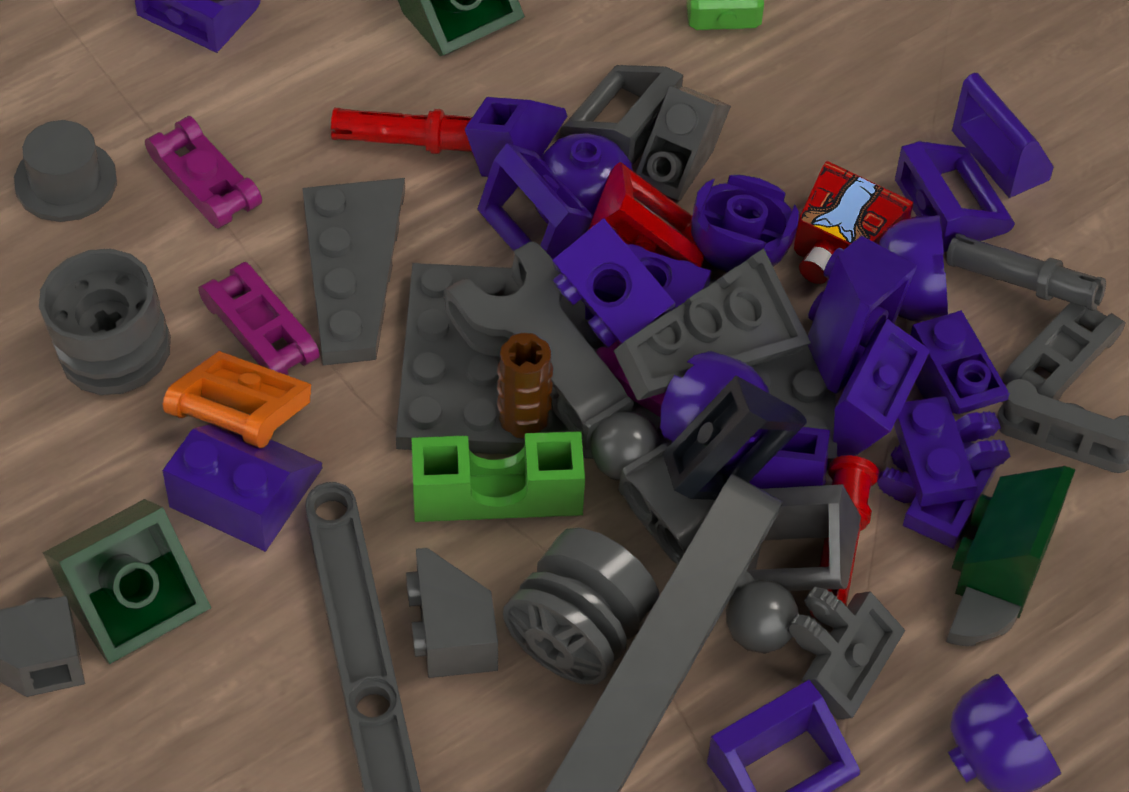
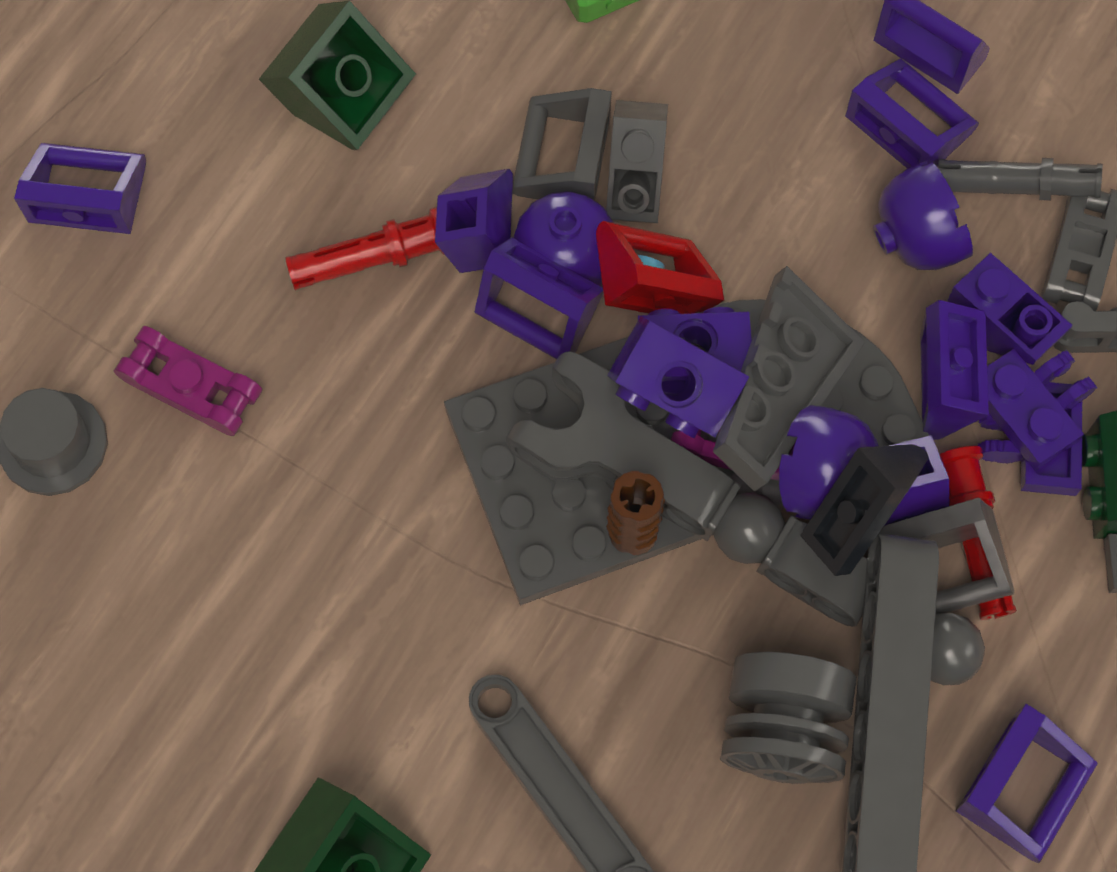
camera: 20 degrees left, 15 degrees up
(105, 321) = (163, 580): dark grey wheel -> none
(236, 484) = (395, 708): dark purple slope -> none
(240, 385) = (352, 611): orange plate -> none
(259, 319) = (326, 526): magenta plate -> none
(351, 262) = (377, 412): dark grey wing -> none
(456, 618) = (669, 771): dark grey slope -> none
(536, 482) = (671, 597): bright green arch -> none
(740, 220) = (745, 236): dark purple cylinder -> none
(840, 212) = (831, 192): torso -> none
(854, 650) = (1041, 649): dark grey hinge -> none
(861, 293) = (894, 293): dark purple slope -> none

